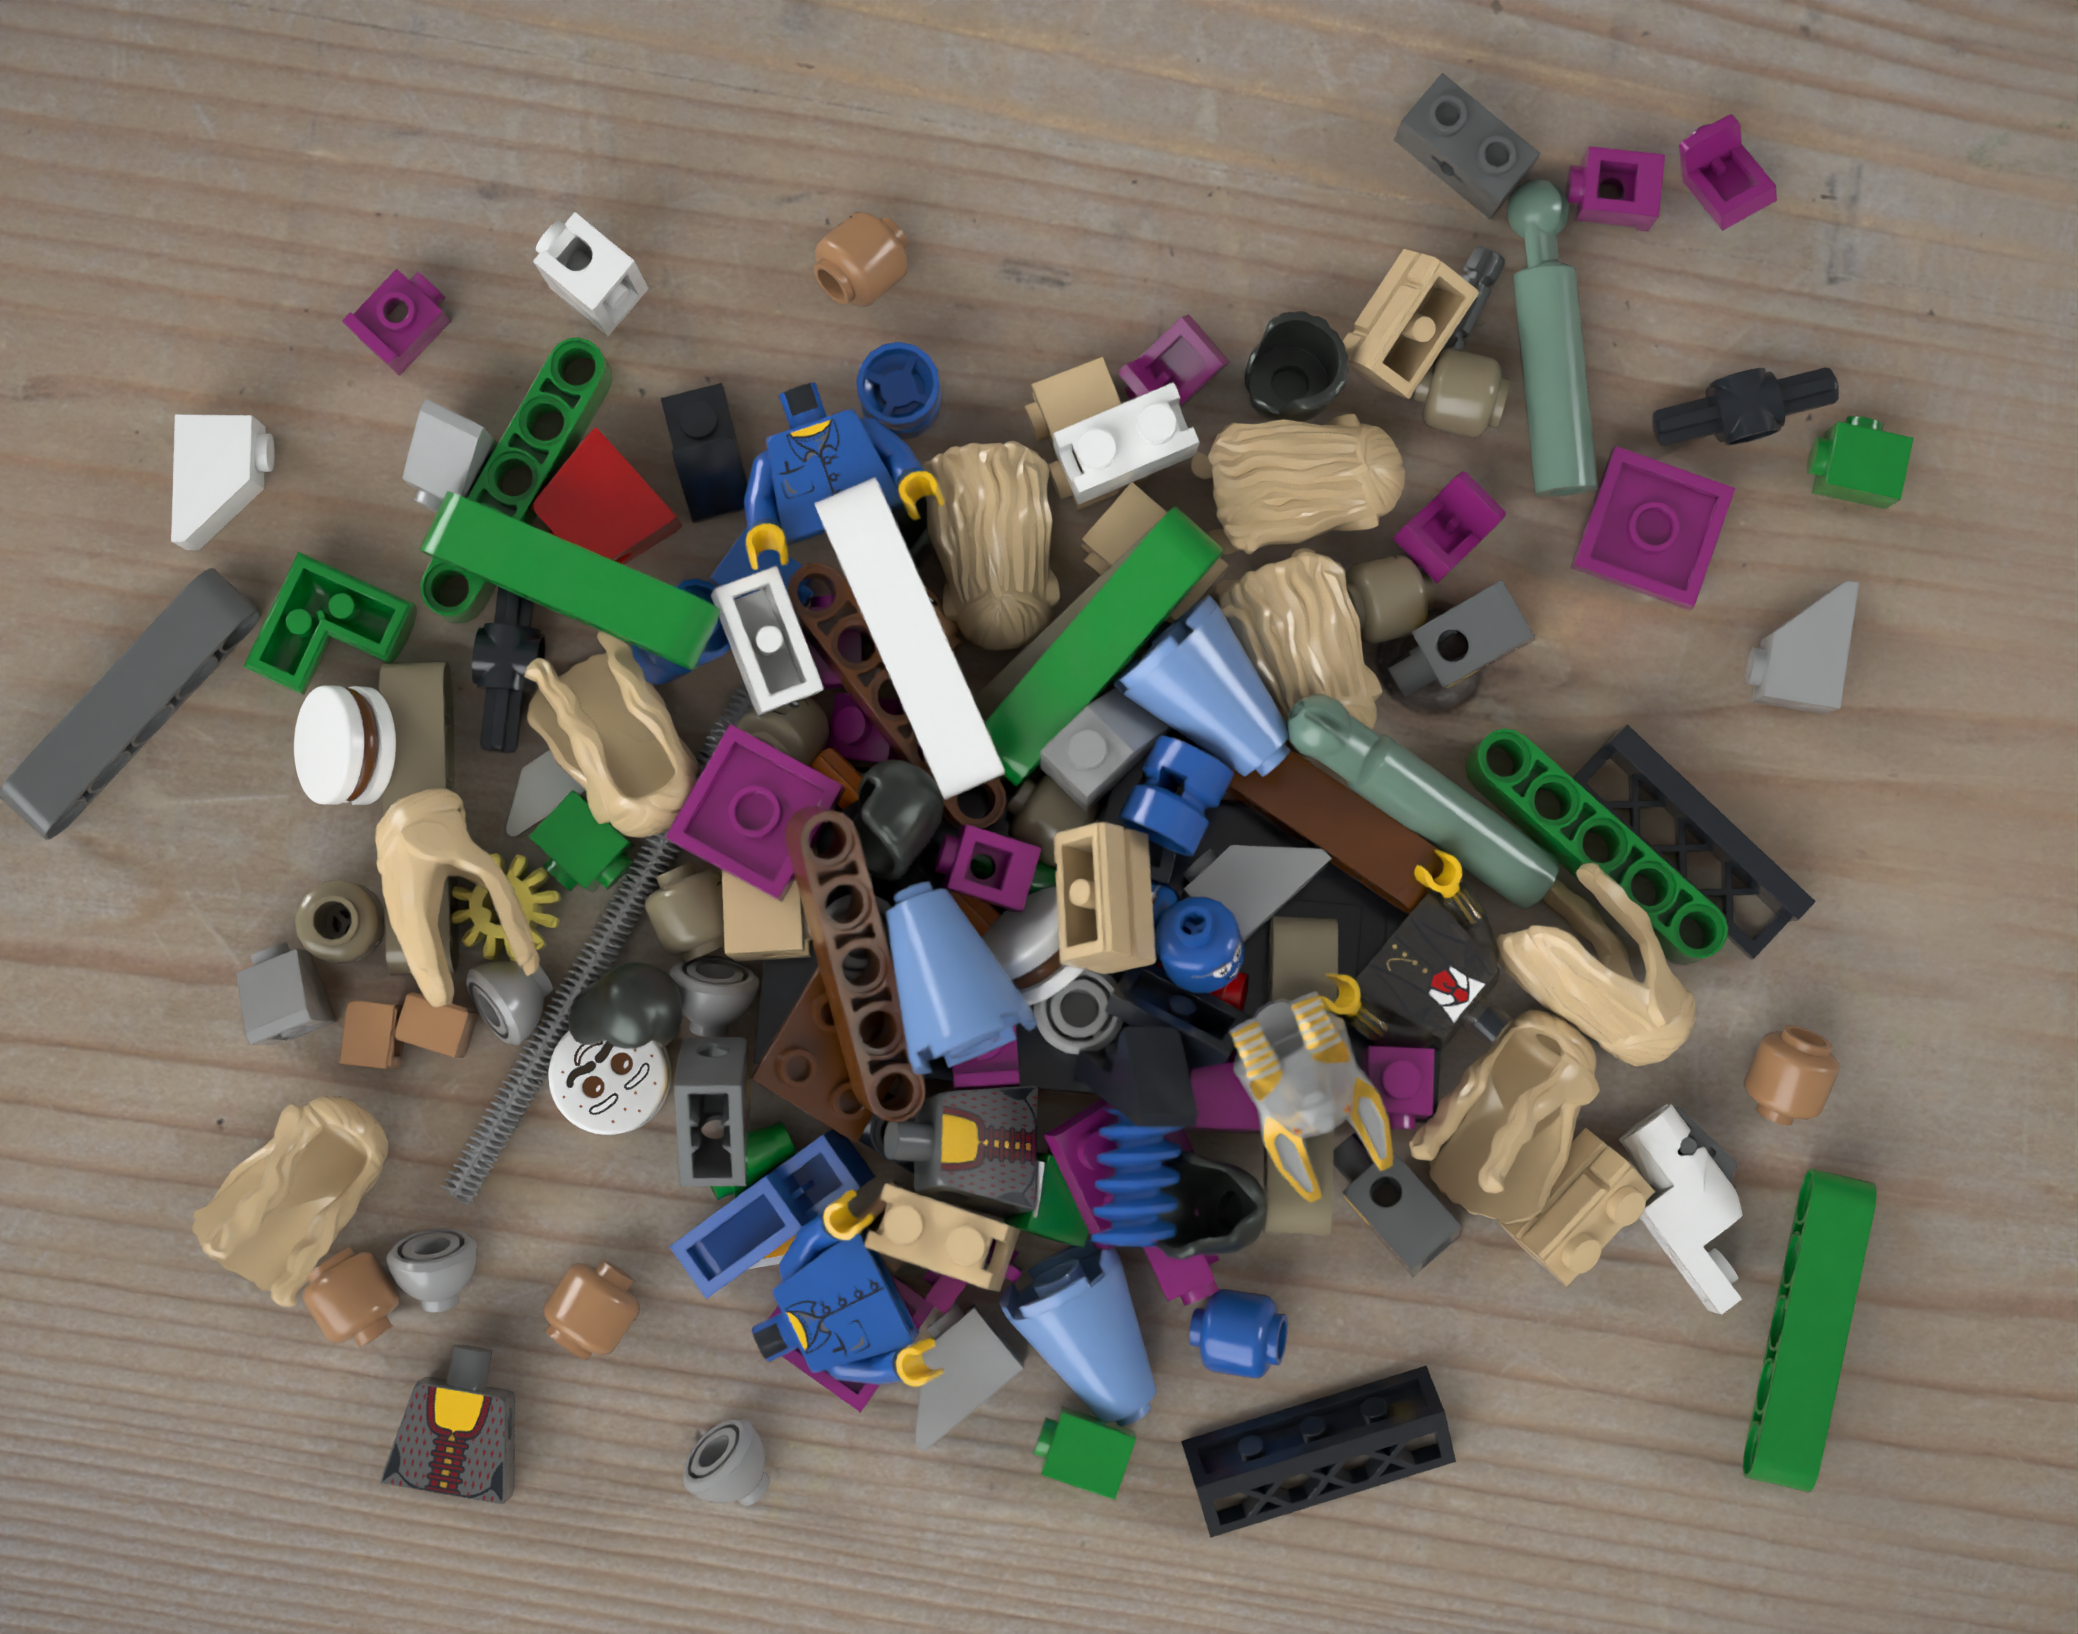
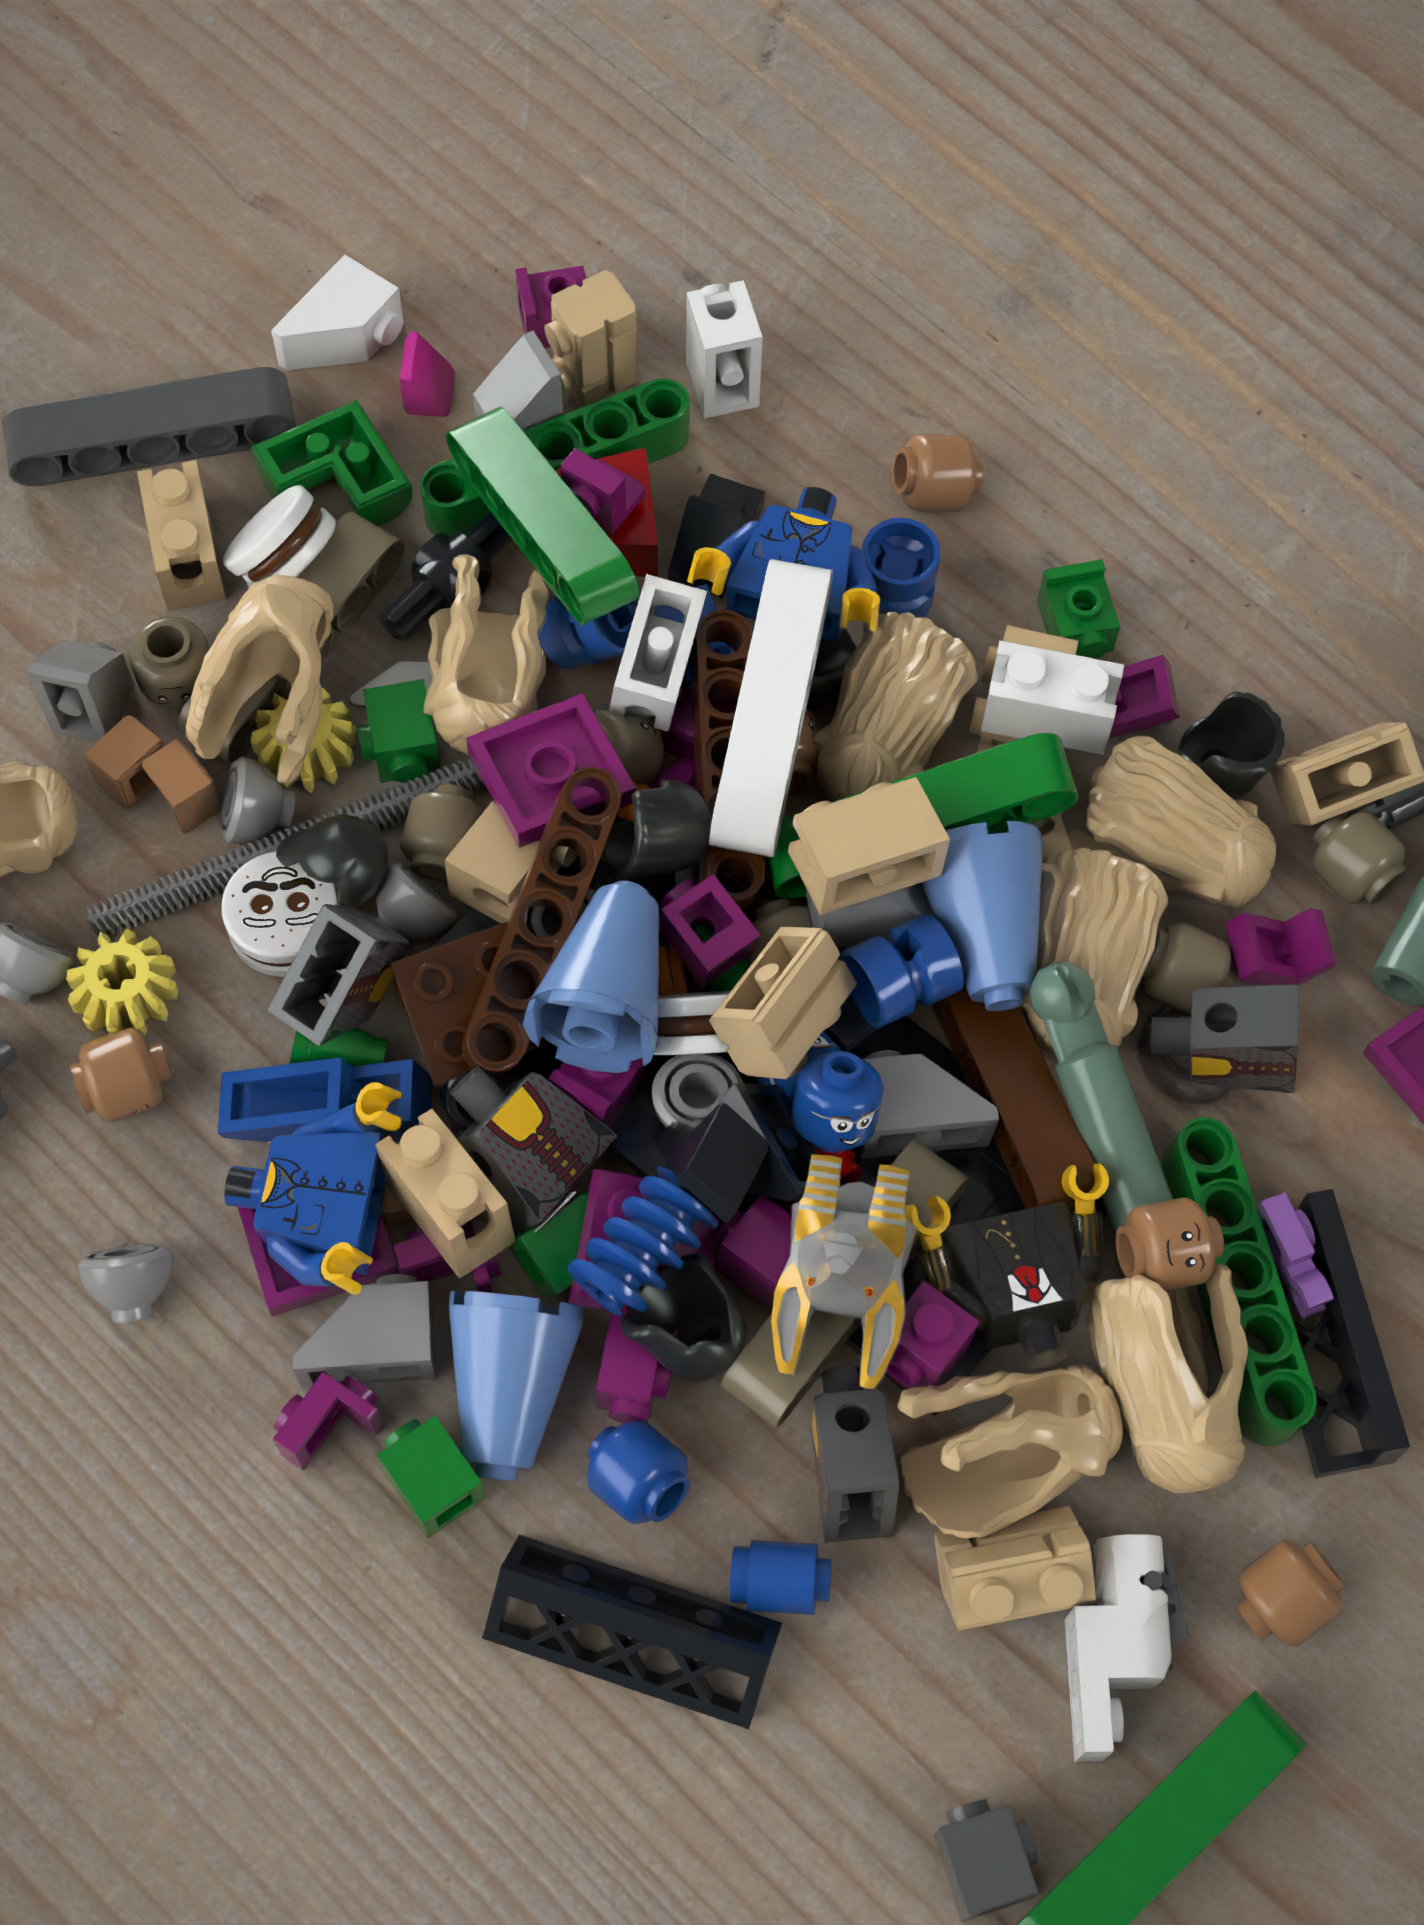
camera: 35 degrees right, 20 degrees down
(248, 793) = (181, 534): none -> tan brick
(337, 478) = (425, 378): none -> dark pink slope
(466, 346) = (594, 338): none -> tan brick
(508, 1223) = (122, 983): none -> light yellow gear
(598, 510) = (601, 489): none -> magenta bracket
(957, 1475) = (311, 1419): none -> magenta bracket
(1051, 310) = (1079, 607): none -> green brick
(1087, 727) = (868, 844): none -> tan brick
(1402, 1335) = (779, 1577): none -> blue brick
(1538, 879) = (1169, 1243): none -> medium nougat head
(1618, 792) = (1291, 1247): none -> medium lavender plate
(1696, 1435) = (986, 1858): none -> dark grey brick

